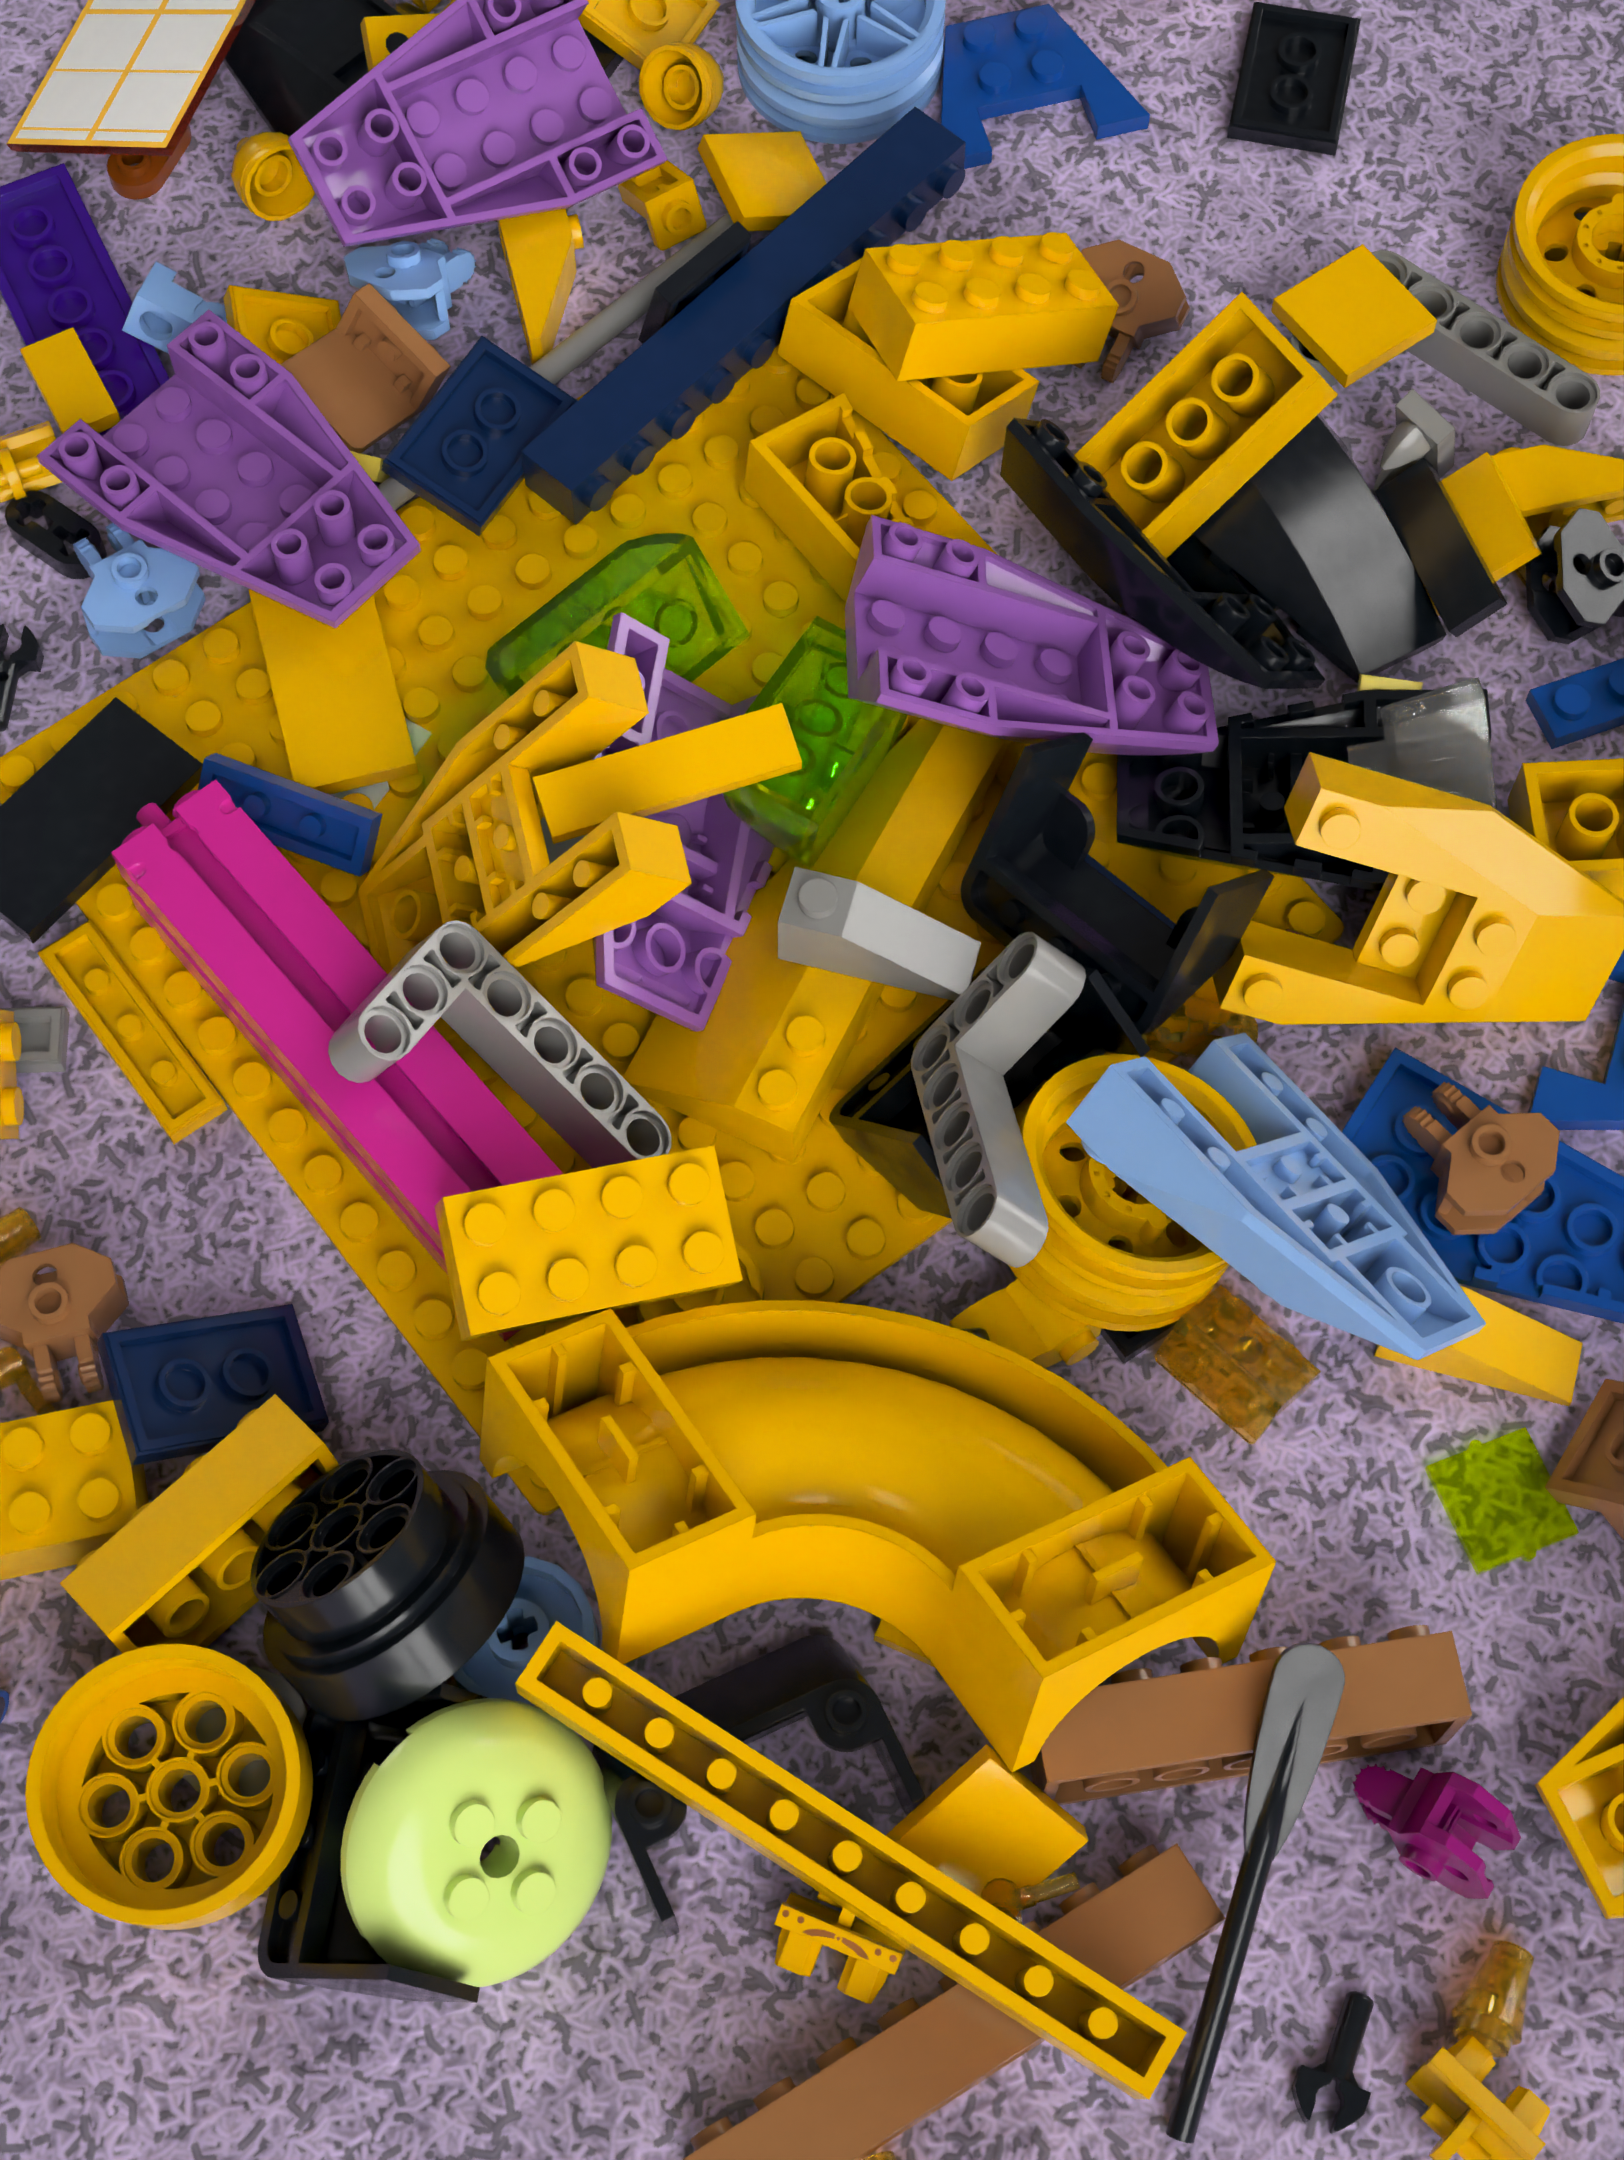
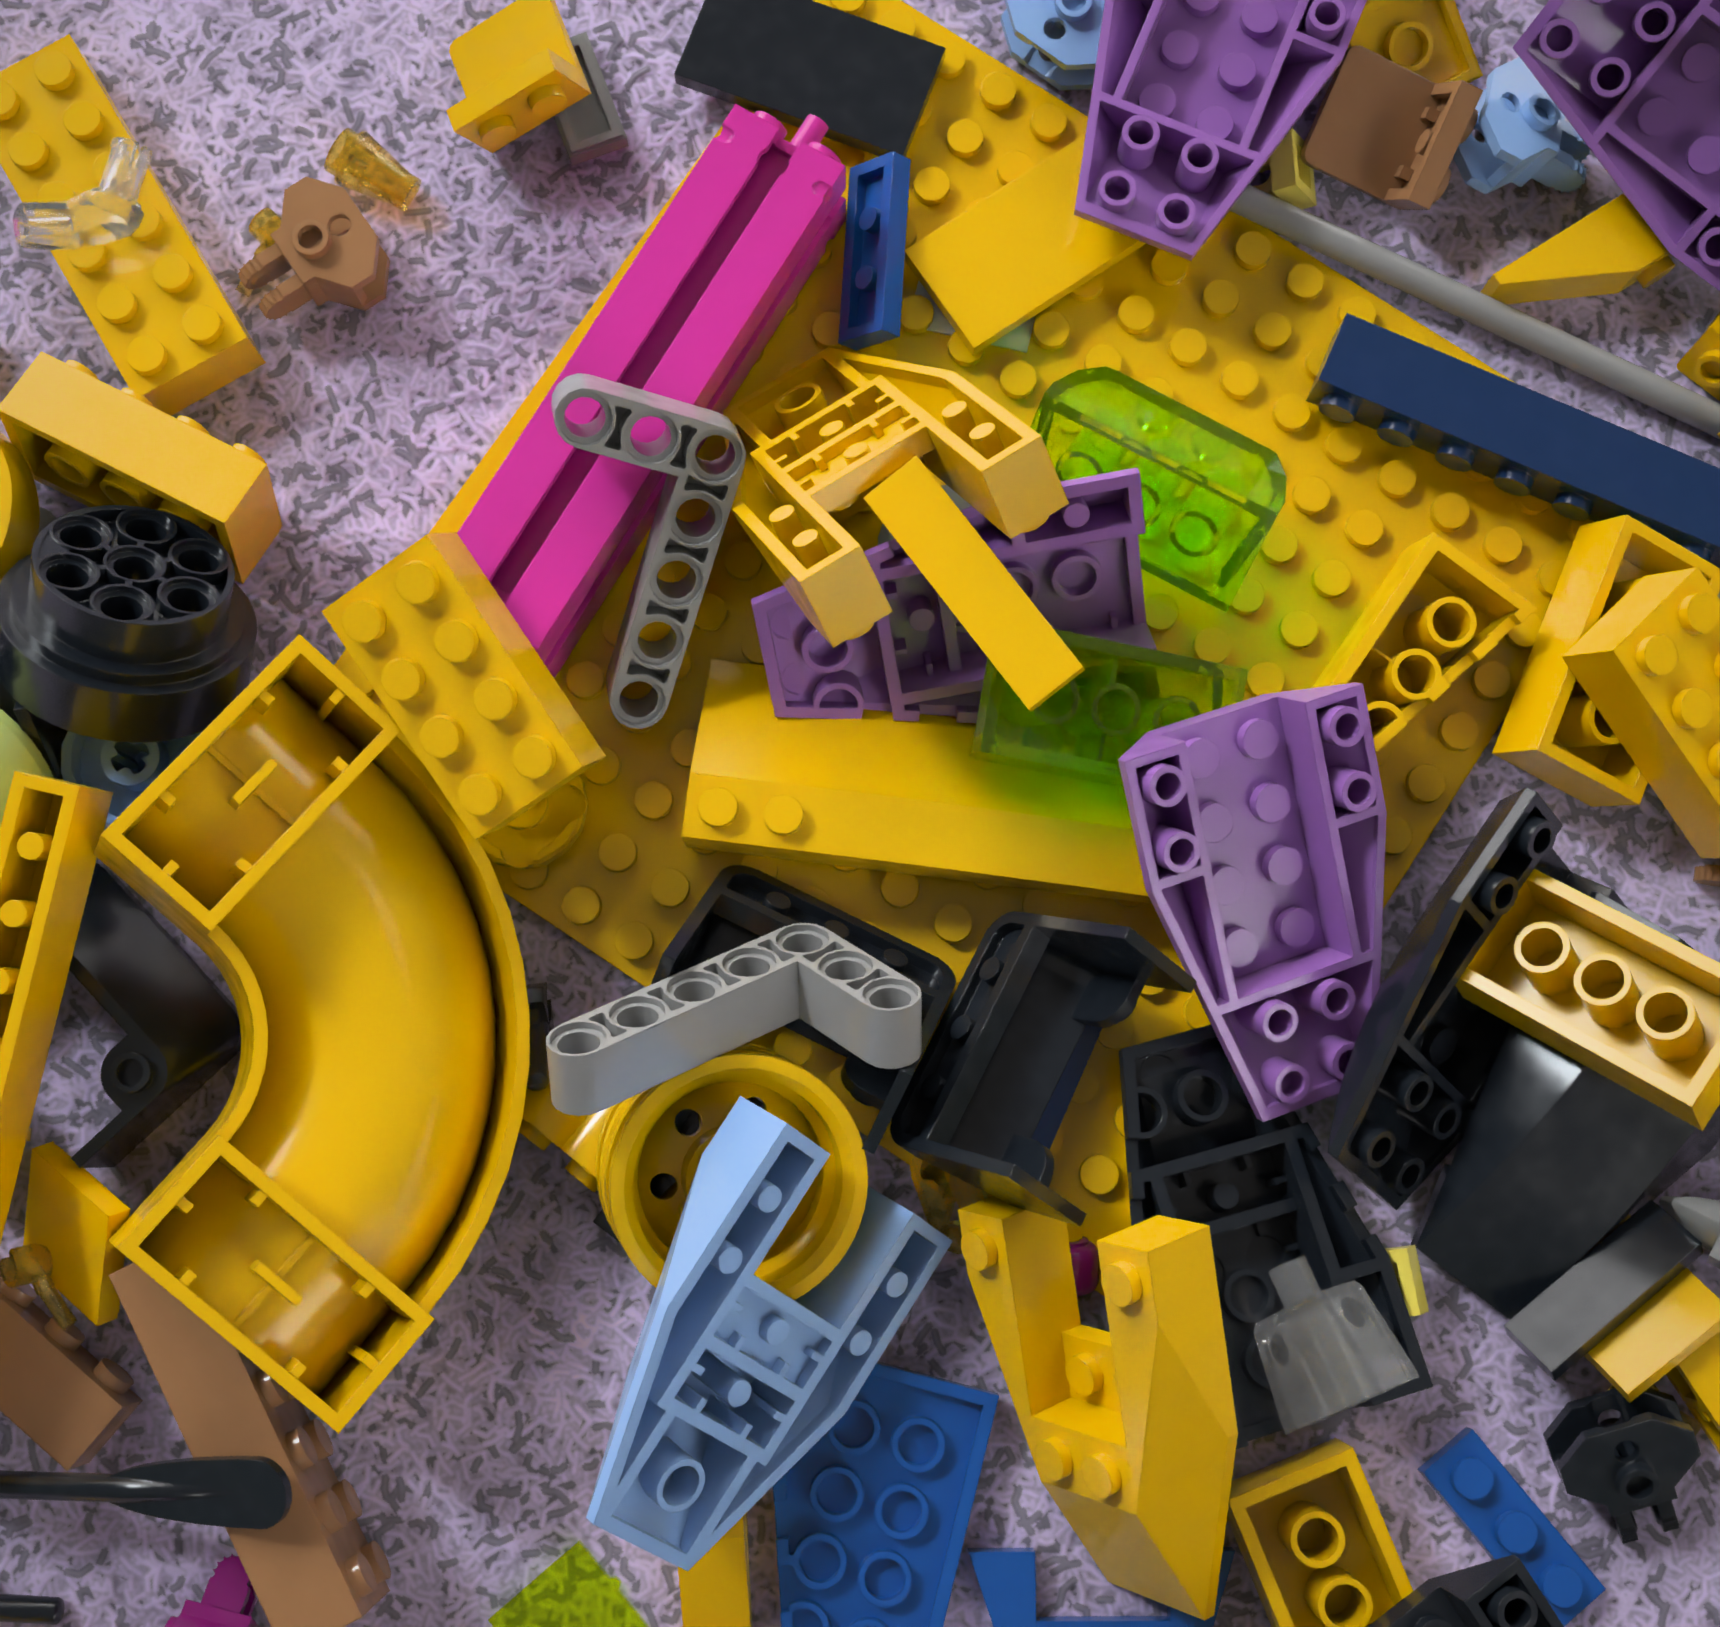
camera: 70 degrees right, 15 degrees up
(132, 1031) = (625, 205): yellow tile -> none
(195, 1379) = (296, 408): dark blue tile -> none
(471, 435) = (1364, 262): dark blue tile -> none
(694, 278) = (1626, 411): black tile -> none
(872, 937) = (900, 848): light grey slope -> none
(1235, 1363) = (604, 1332): clear yellow bracket -> none
(1486, 1167) = (887, 1518): medium nougat hinge -> none

